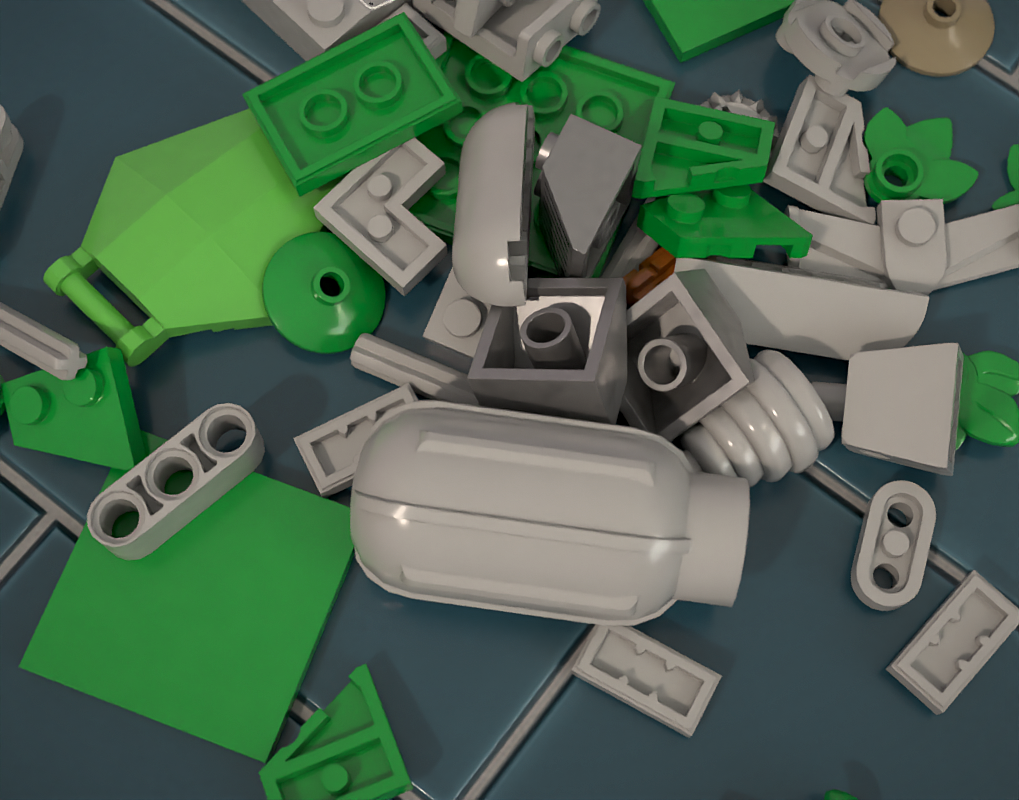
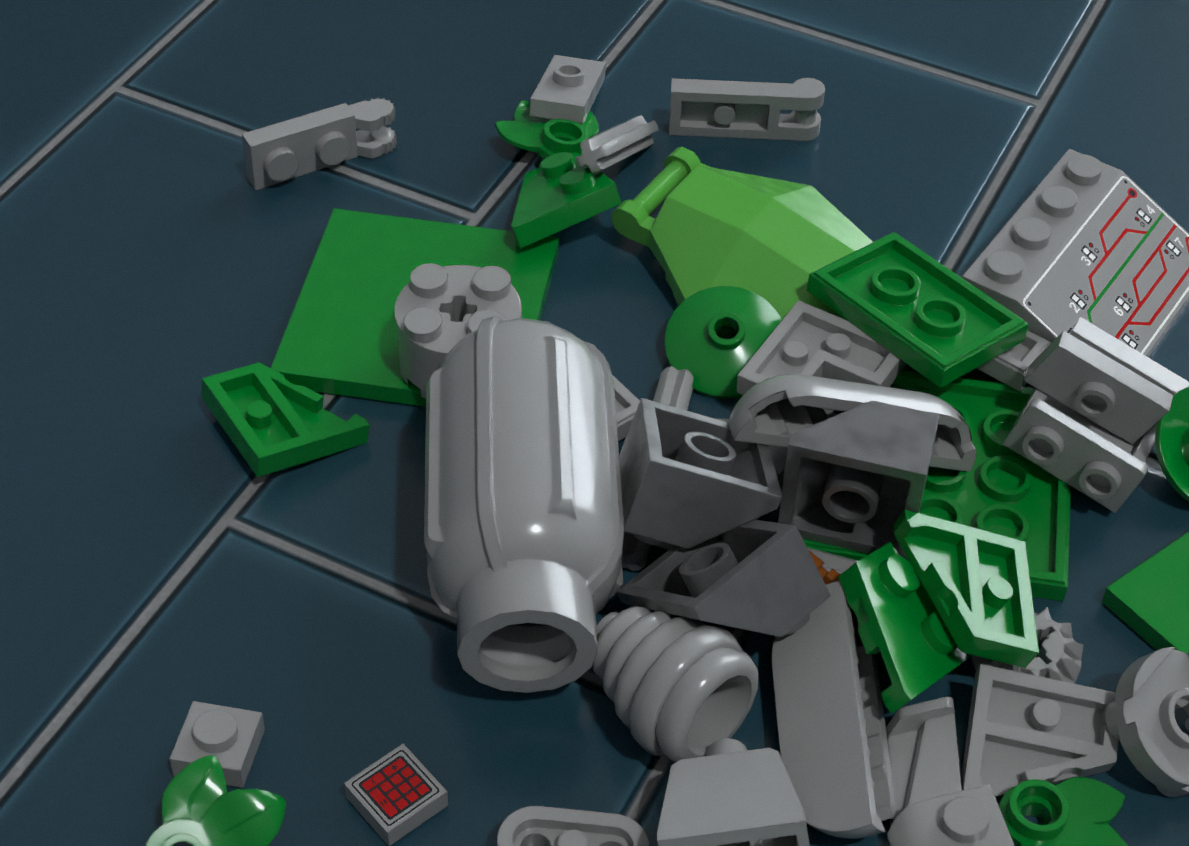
camera: 80 degrees right, 25 degrees down
(144, 484) = (539, 266): light grey beam -> none
(269, 516) = (443, 308): none -> light grey brick
(647, 676) = (388, 642): light grey plate -> none
(810, 691) = (396, 794): none -> tile

